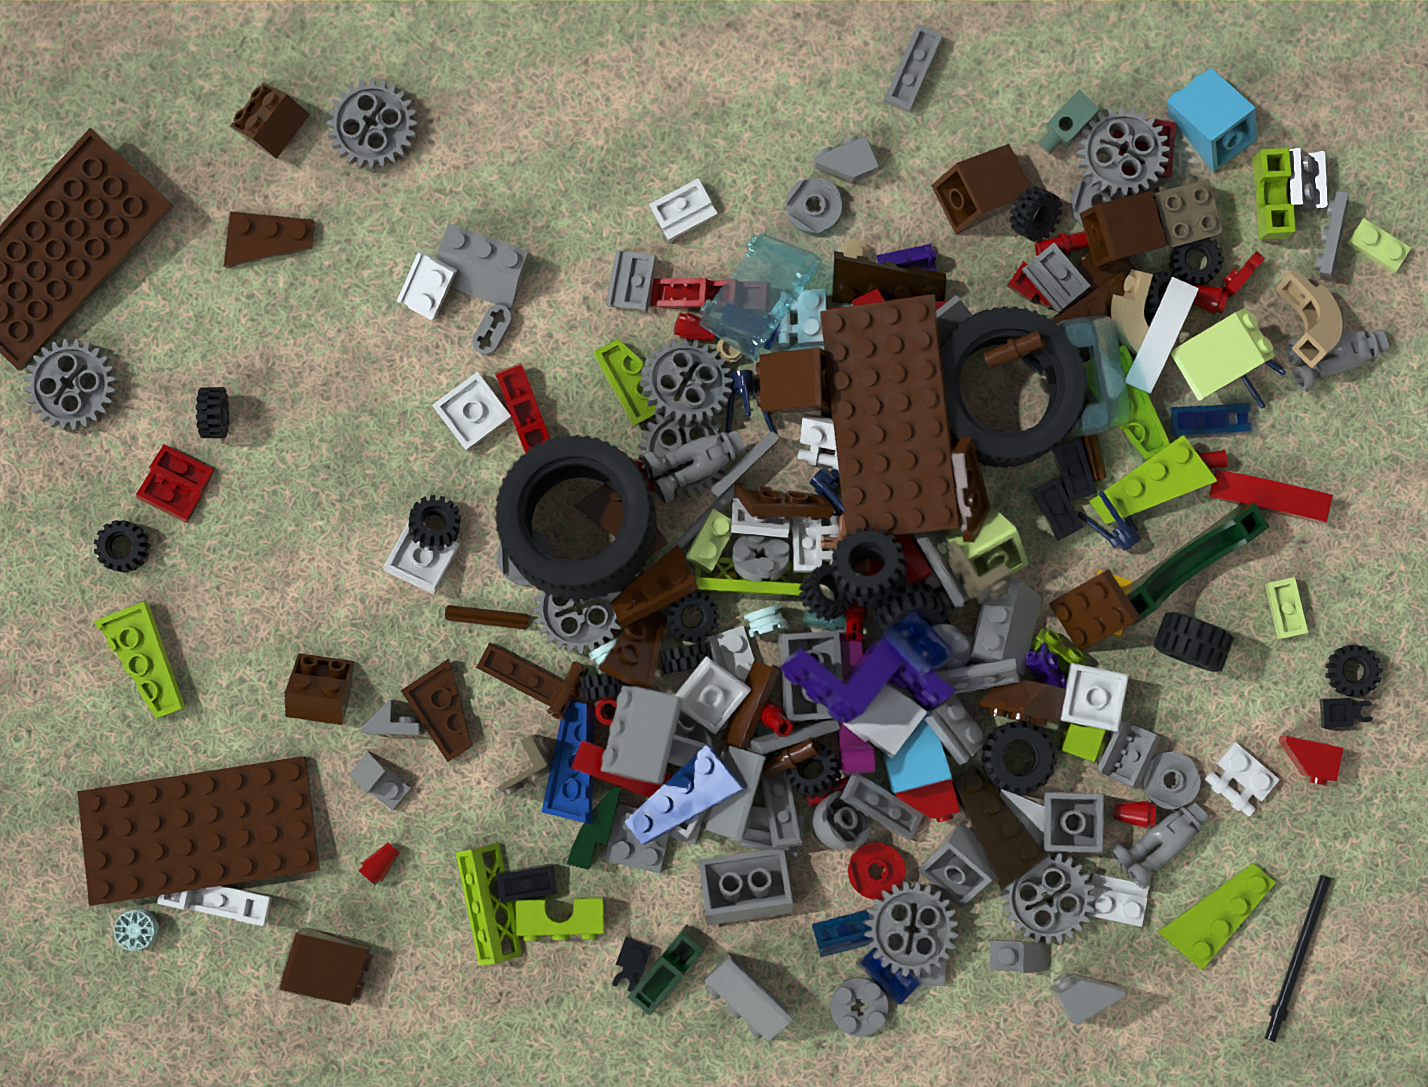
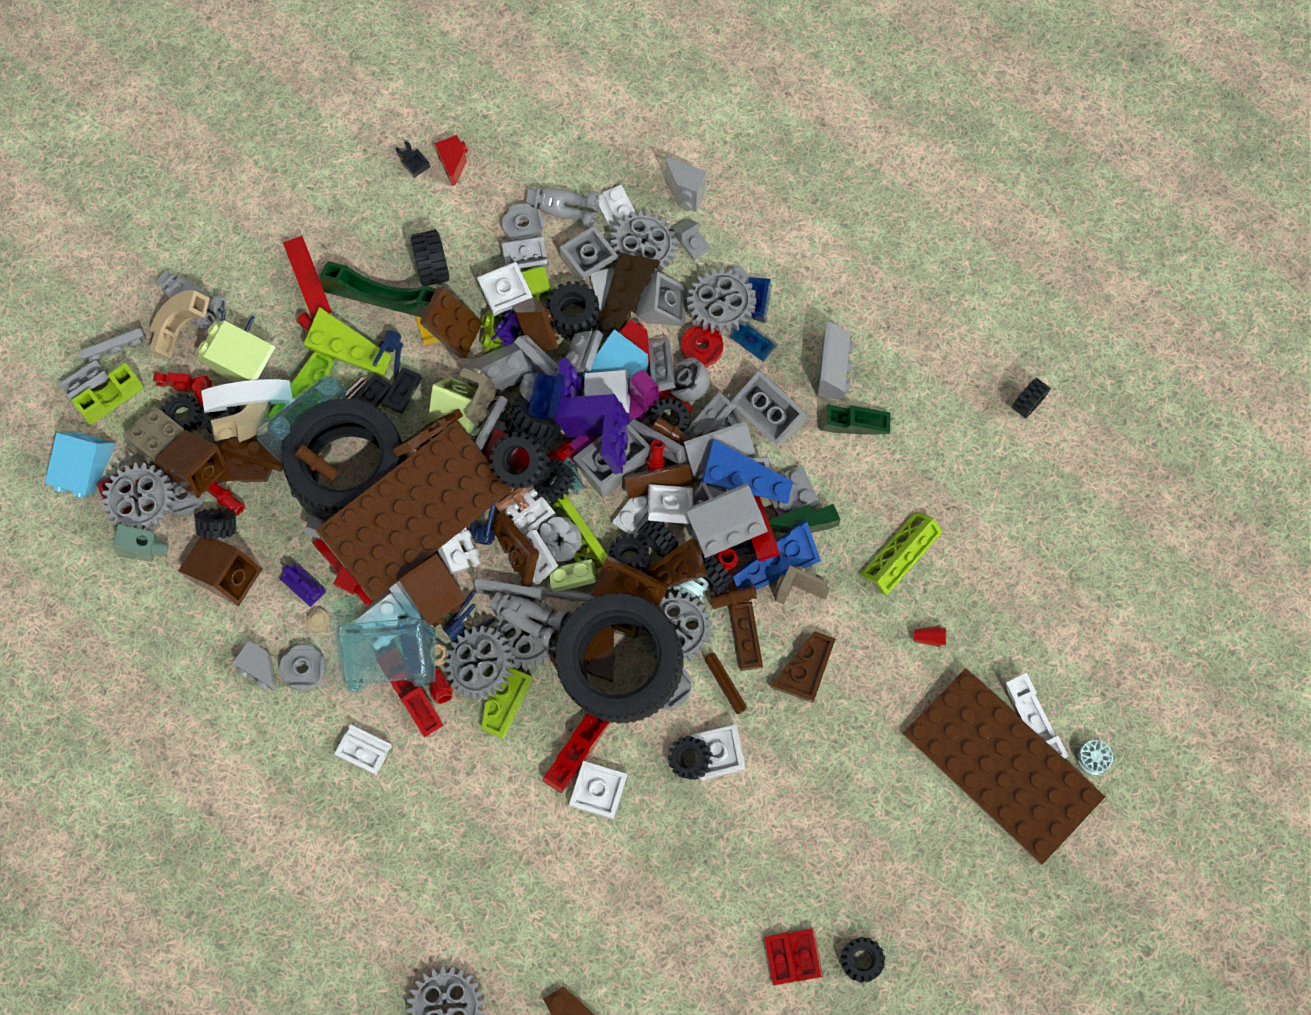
camera: 125 degrees left, 15 degrees down
(141, 650) = (920, 892): lime wing -> none
(212, 412) = (726, 962): black tyre -> none
(319, 689) = (852, 754): reddish brown slope -> none
(326, 967) = (1019, 619): reddish brown slope -> none
(380, 781) = (880, 674): light grey slope -> none
(384, 723) = (843, 695): light grey slope -> none
(427, 285) = (534, 881): white plate -> none
(483, 265) = (495, 856): light grey slope -> none
(486, 327) = (535, 823): light grey beam -> none
(526, 883) = (871, 537): black plate -> none
(534, 919) = (865, 488): lime arch -> none
(632, 281) = (435, 749): light grey plate -> none
(632, 959) = (866, 447): black plate -> none
(765, 620) = (598, 508): light aqua wheel -> none
(849, 1020) = (789, 291): light grey plate -> none
(859, 276) = (331, 599): dark brown wing -> none
(913, 68) = (163, 669): light grey plate -> none
(1024, 287) = (265, 501): red plate -> none
(1055, 277) = (251, 484): light grey plate -> none
(1136, 813) = (555, 226): red cone -> none
(1209, 419) = (283, 342): clear blue plate -> none
(1214, 919) = (587, 151): lime wing -> none
(1245, 771) = (487, 186): white plate -> none
(1279, 1011) = (613, 86): black bar -> none
(1286, 608) = (371, 227): yellowish green plate -> none
(1370, 666) = (386, 179): black tyre -> none
(1378, 245) = (102, 319): yellowish green plate -> none

